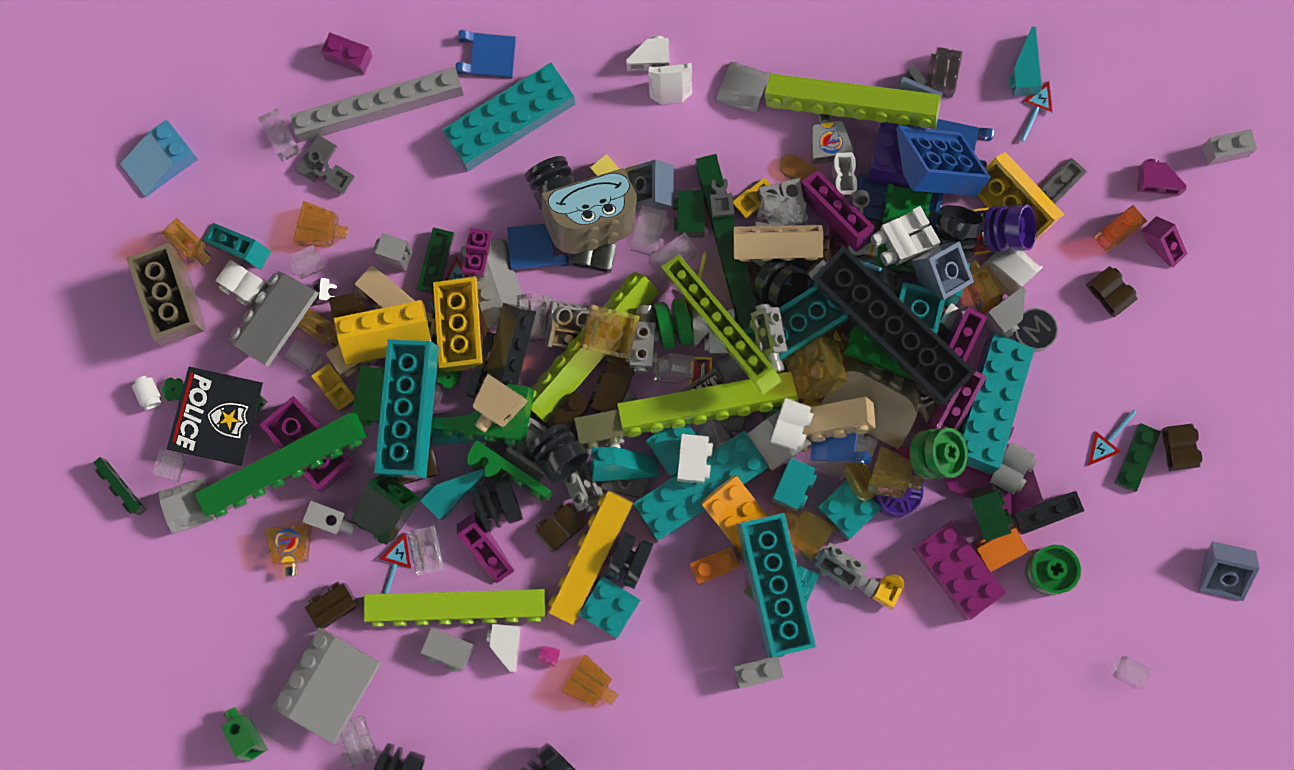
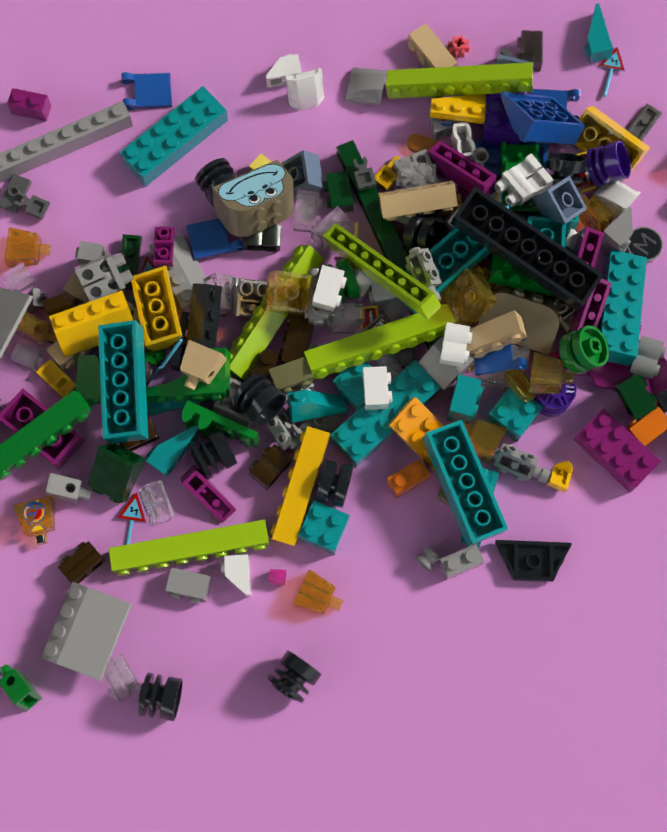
camera: 10 degrees left, 5 degrees down
(402, 280) = (102, 276): none -> light grey hips
(478, 368) = (165, 361): none -> medium azure piece
(657, 334) = (328, 288): none -> white brick
(721, 661) = (427, 558): none -> light grey wheel
(826, 54) = (429, 48): none -> tan brick
(840, 681) = (532, 559): none -> black wing
(847, 134) = (460, 108): none -> yellow wing
(859, 61) = (458, 46): none -> coral gear

